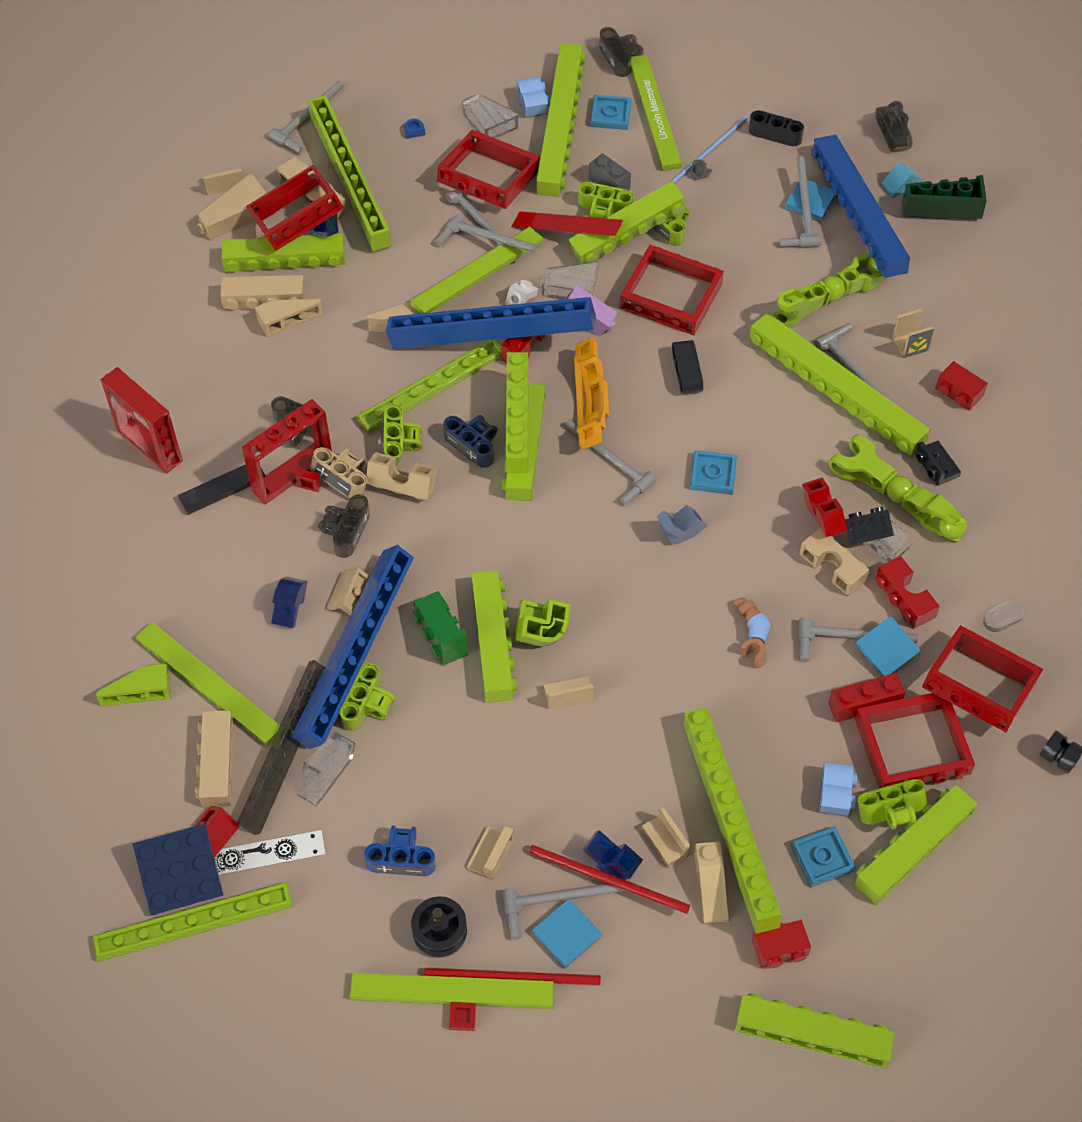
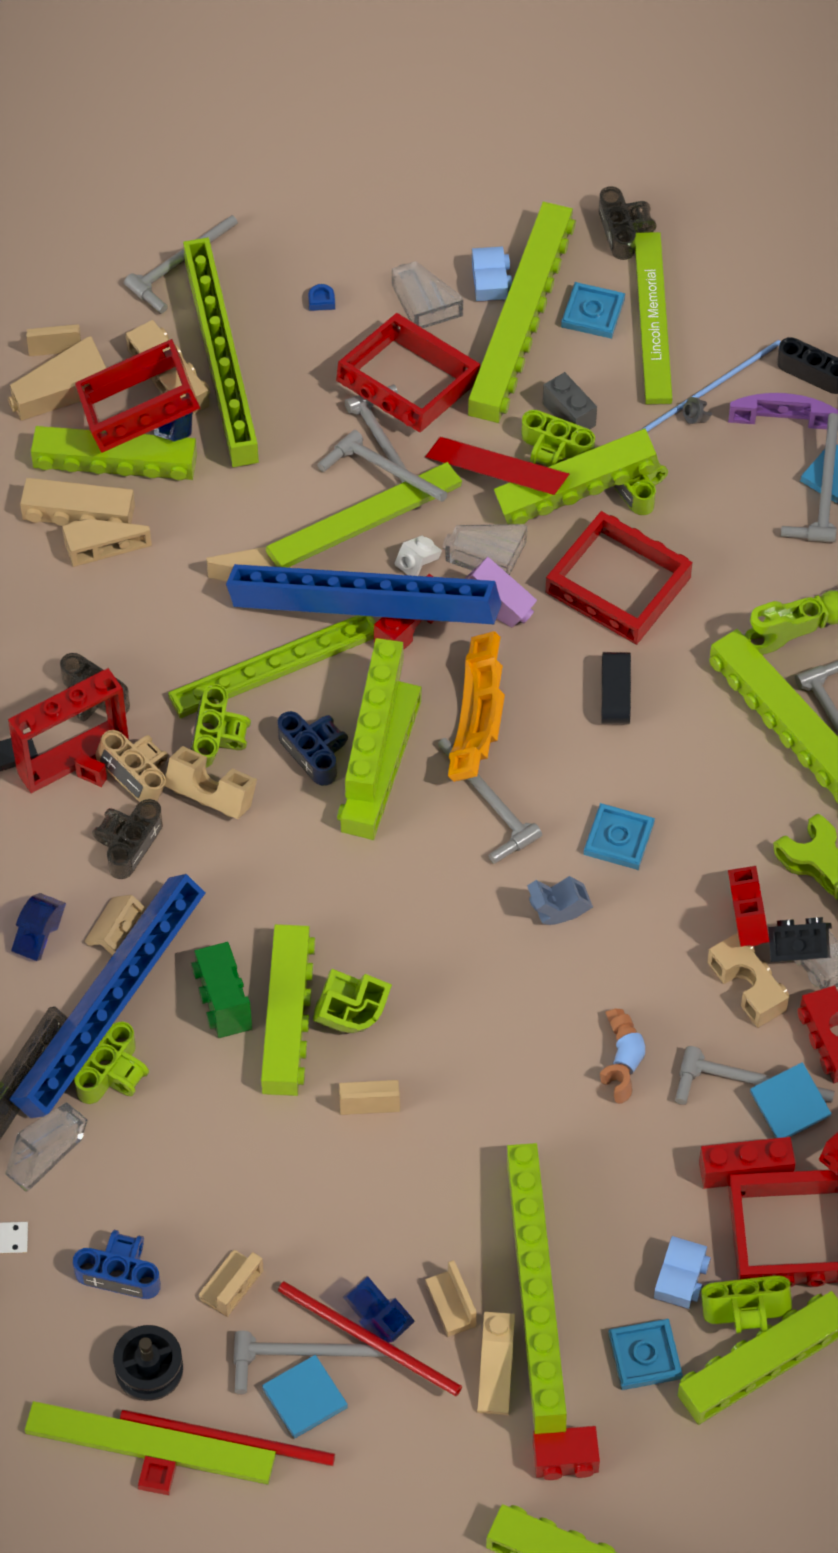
camera: 10 degrees right, 0 degrees up
(761, 158) = (780, 405): none -> medium lavender slope

